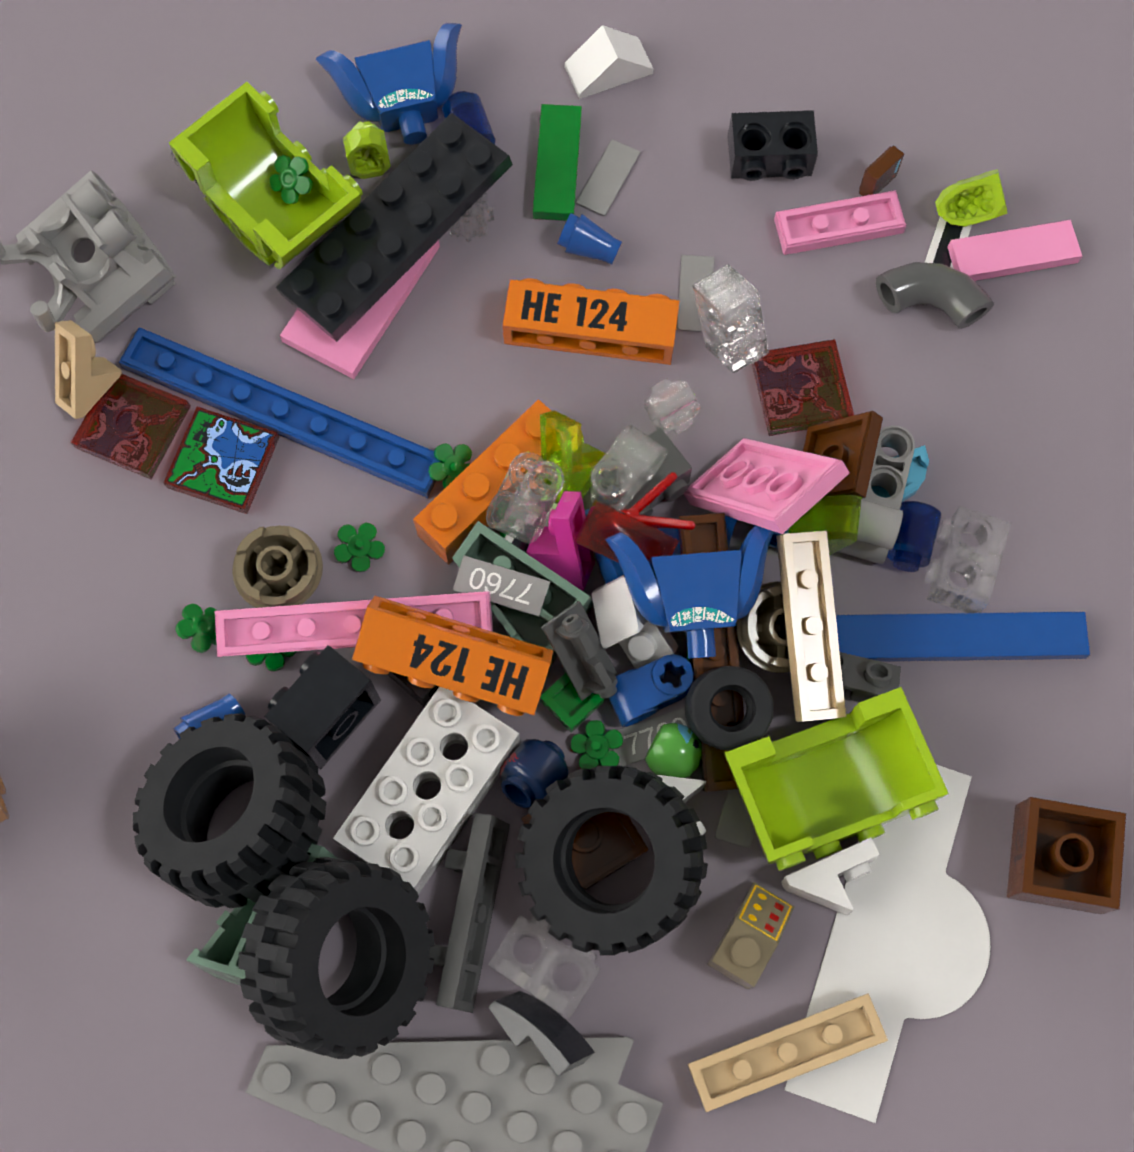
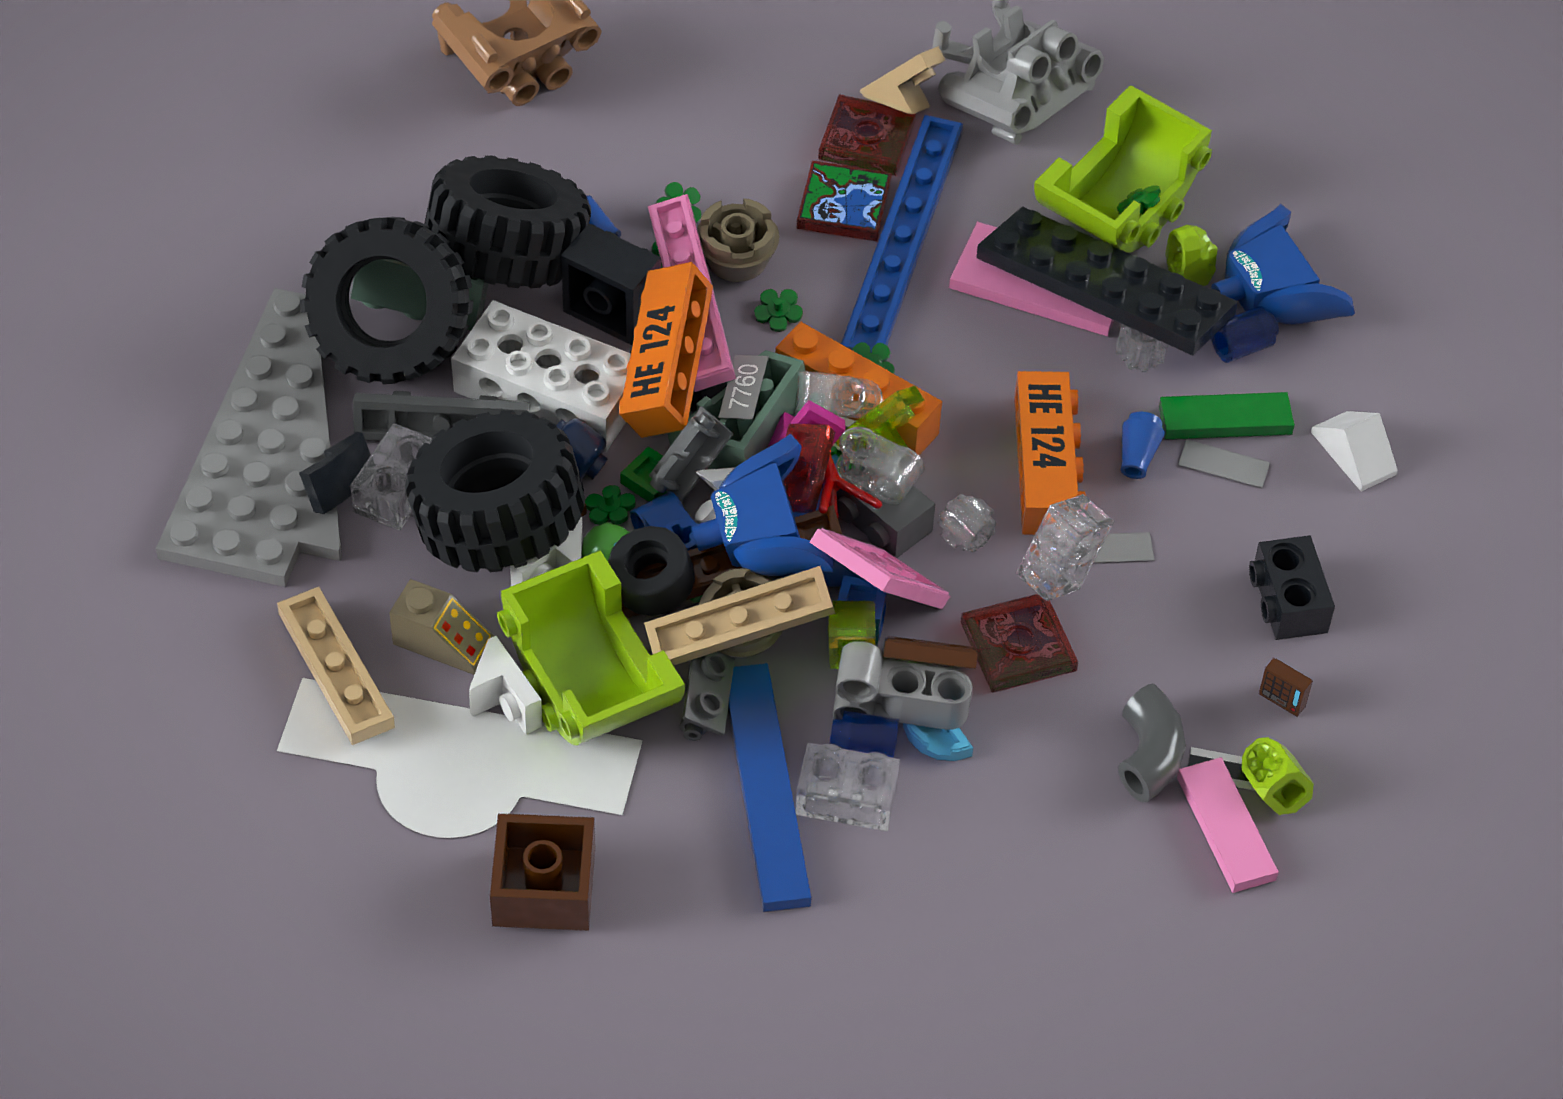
camera: 80 degrees right, 20 degrees down
(839, 222) = (1222, 664): bright pink tile -> none

